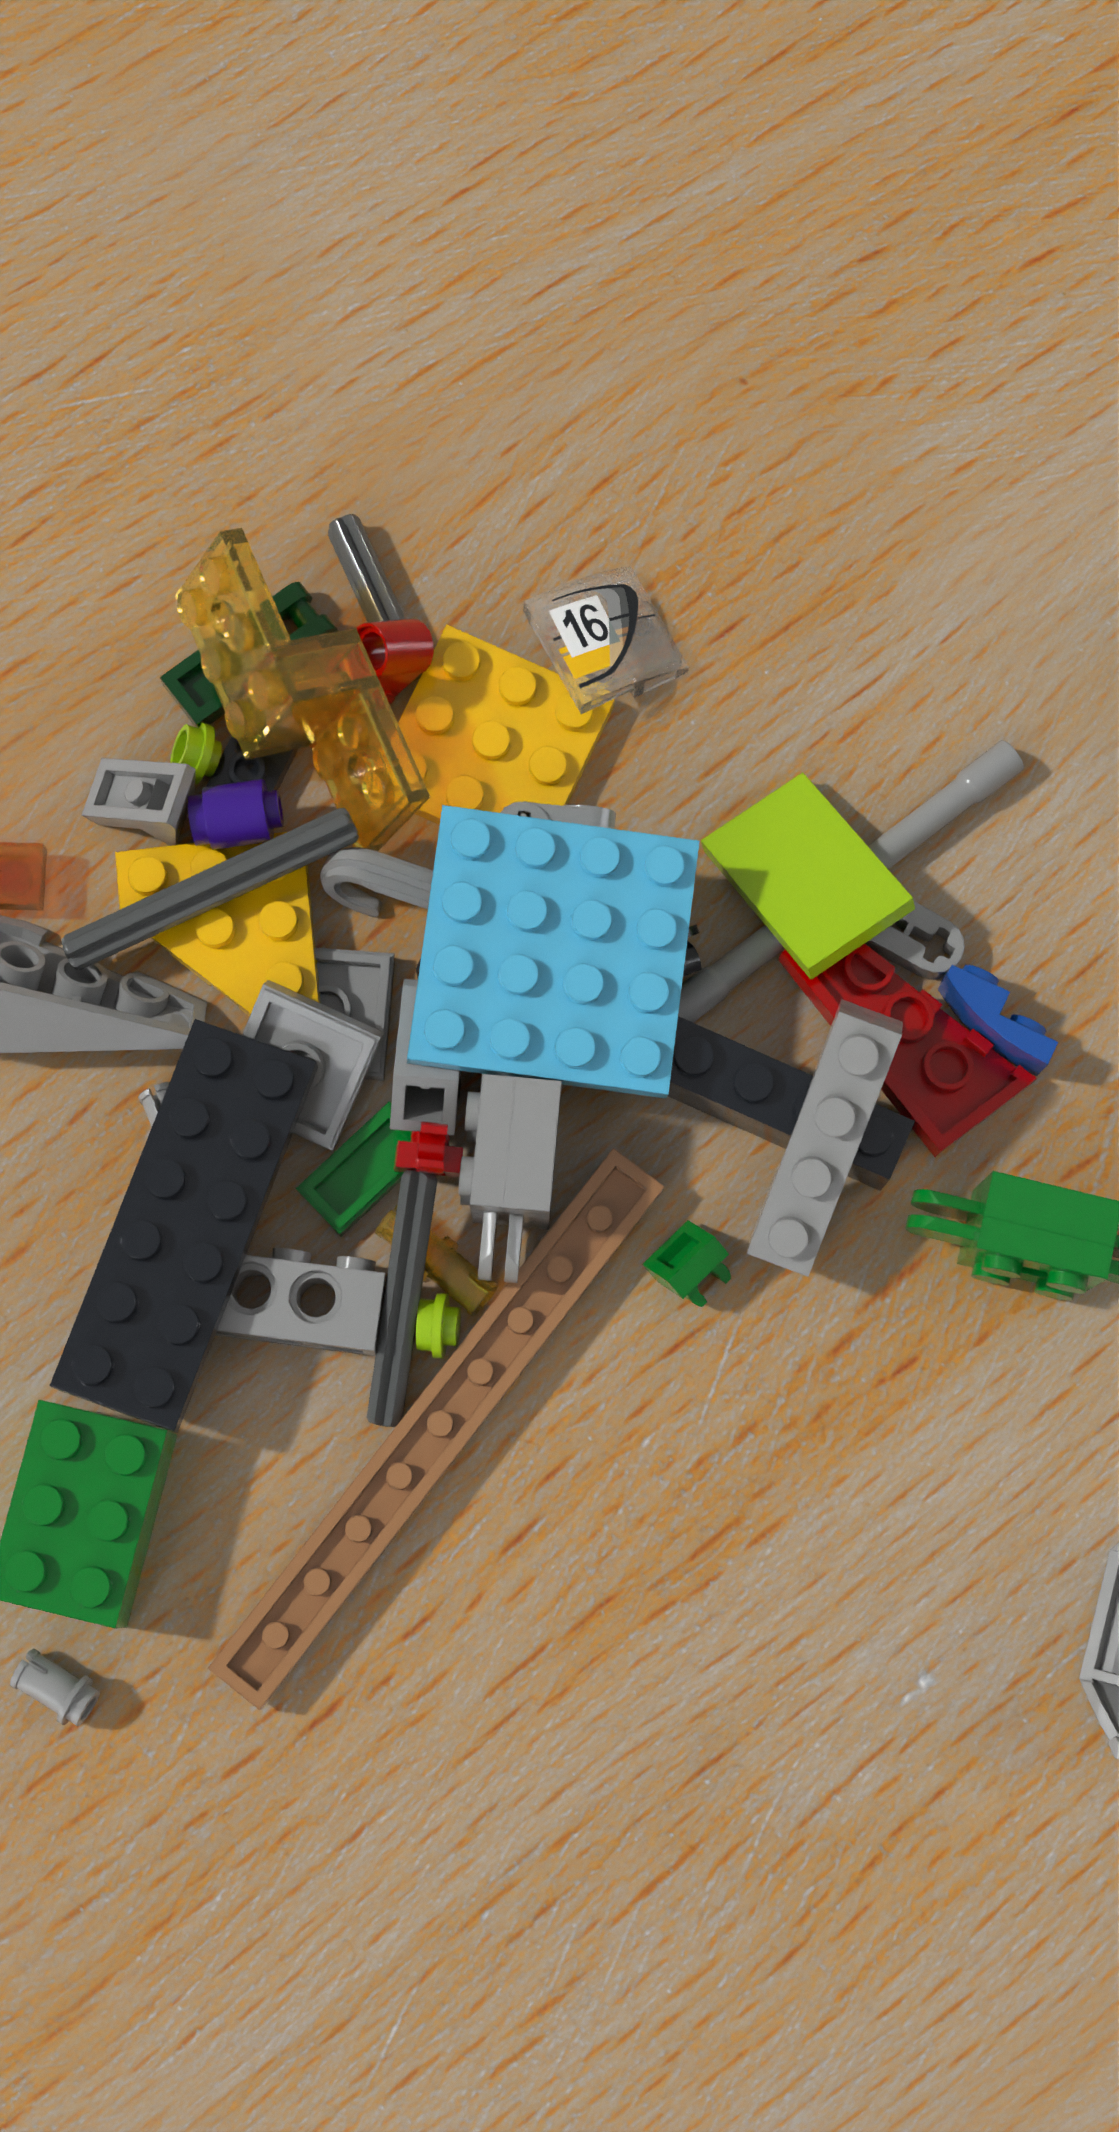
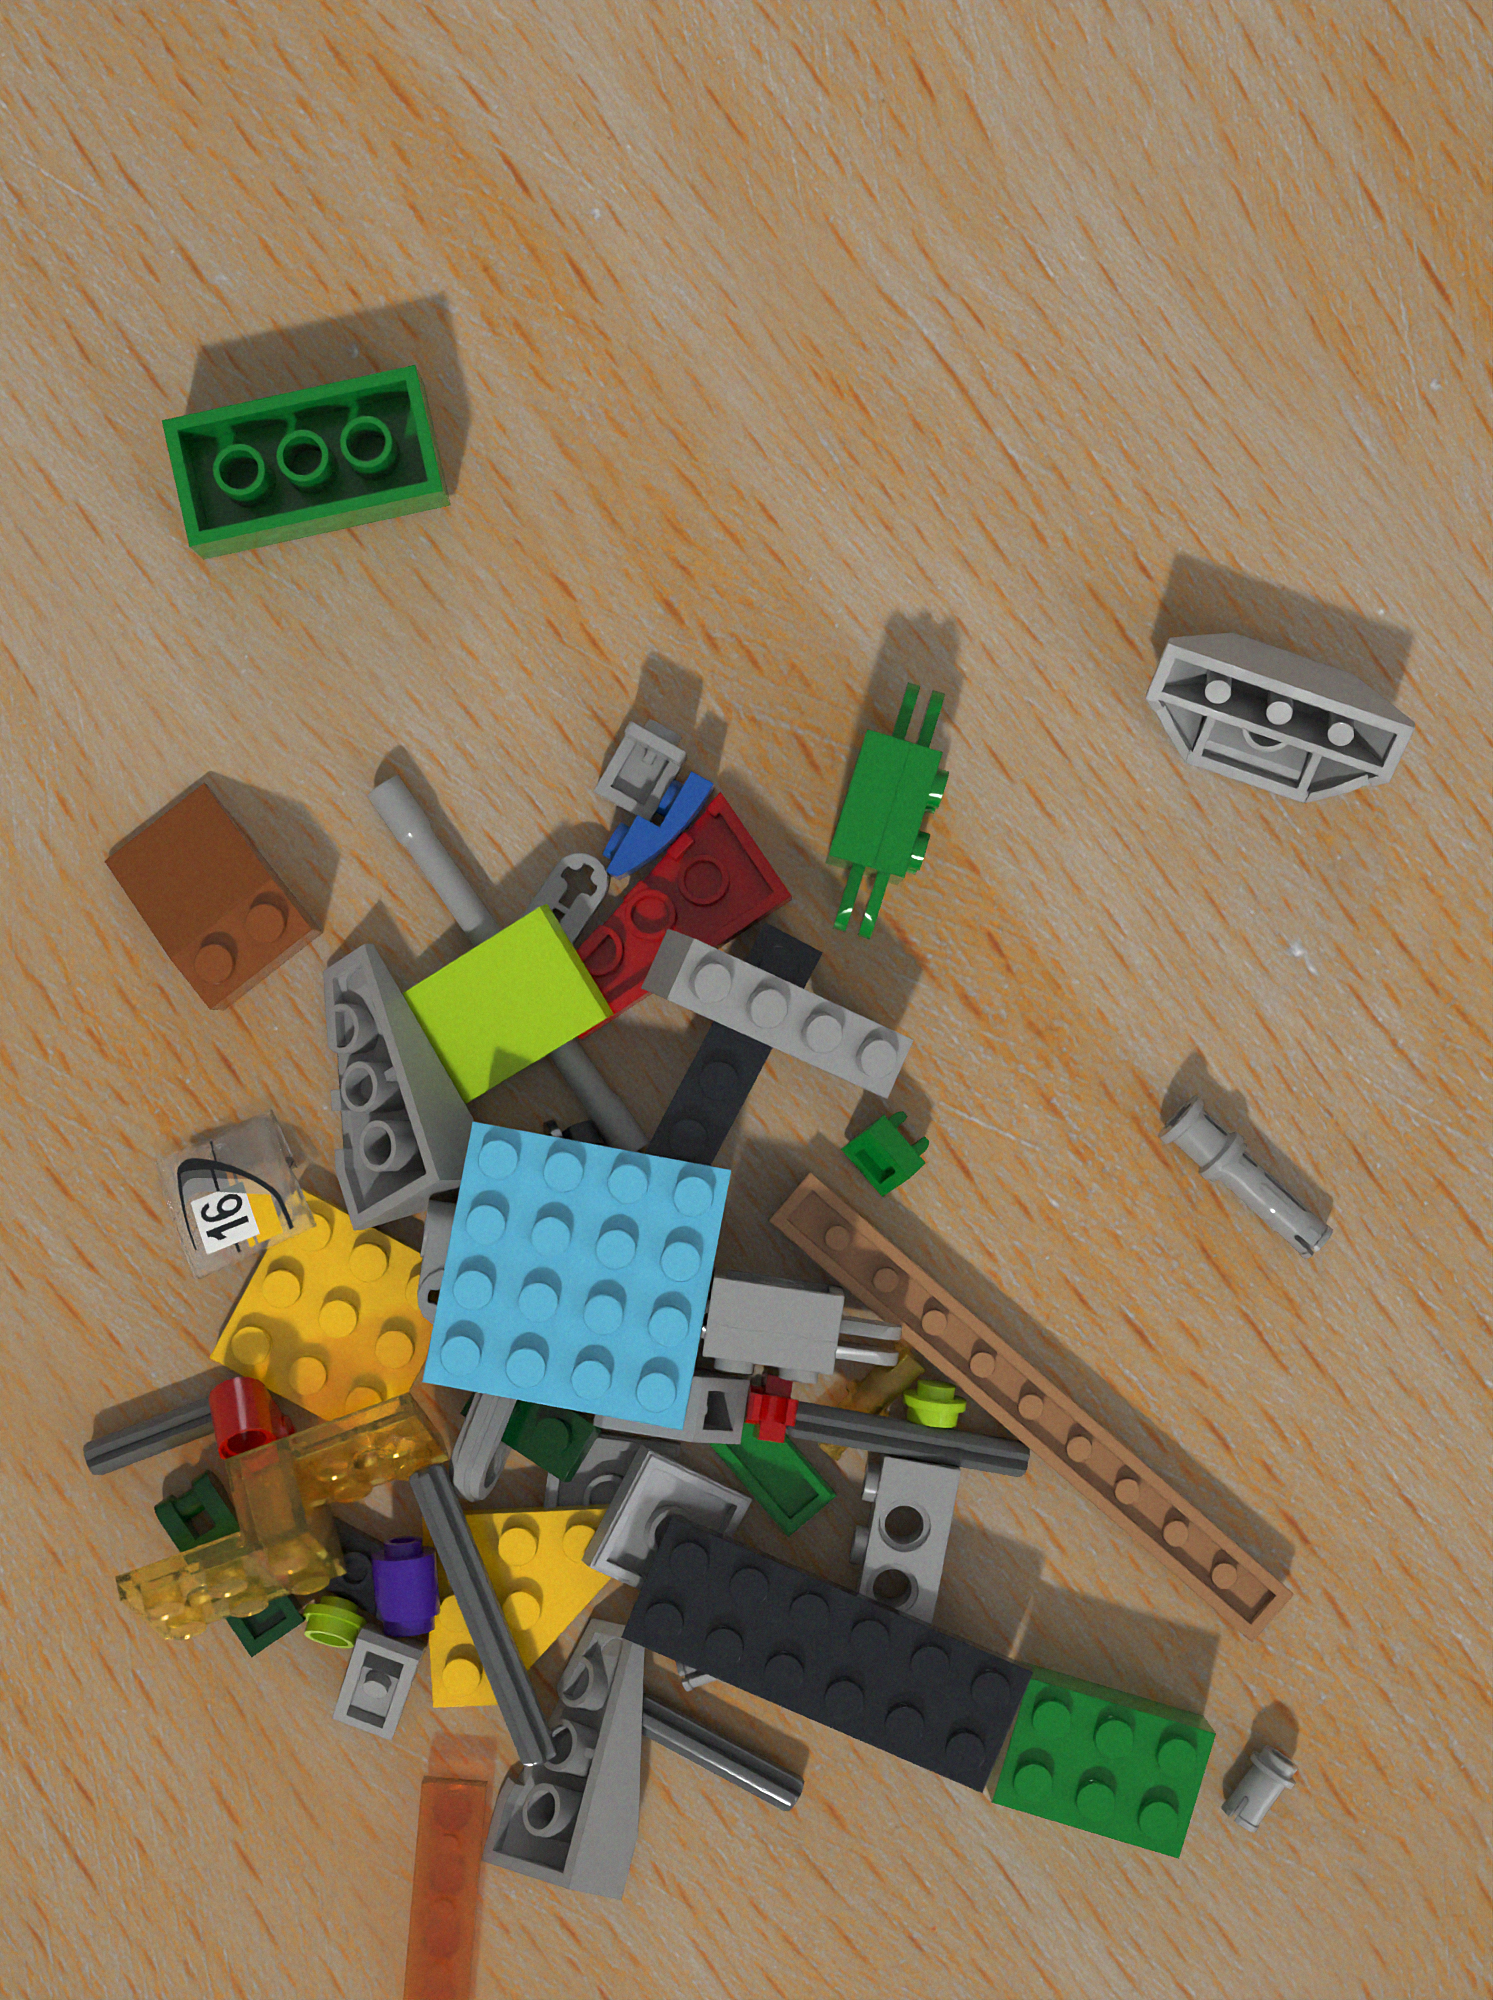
camera: 90 degrees left, 10 degrees up
(76, 1132) = (720, 1754): none -> dark grey axle
(388, 945) = (549, 1436): none -> dark green plate
(705, 1612) = (1224, 1159): none -> light grey pin
(713, 779) = (396, 1102): none -> light grey wedge
(885, 604) = (212, 899): none -> dark orange slope
(1054, 999) = (642, 769): none -> light grey bracket

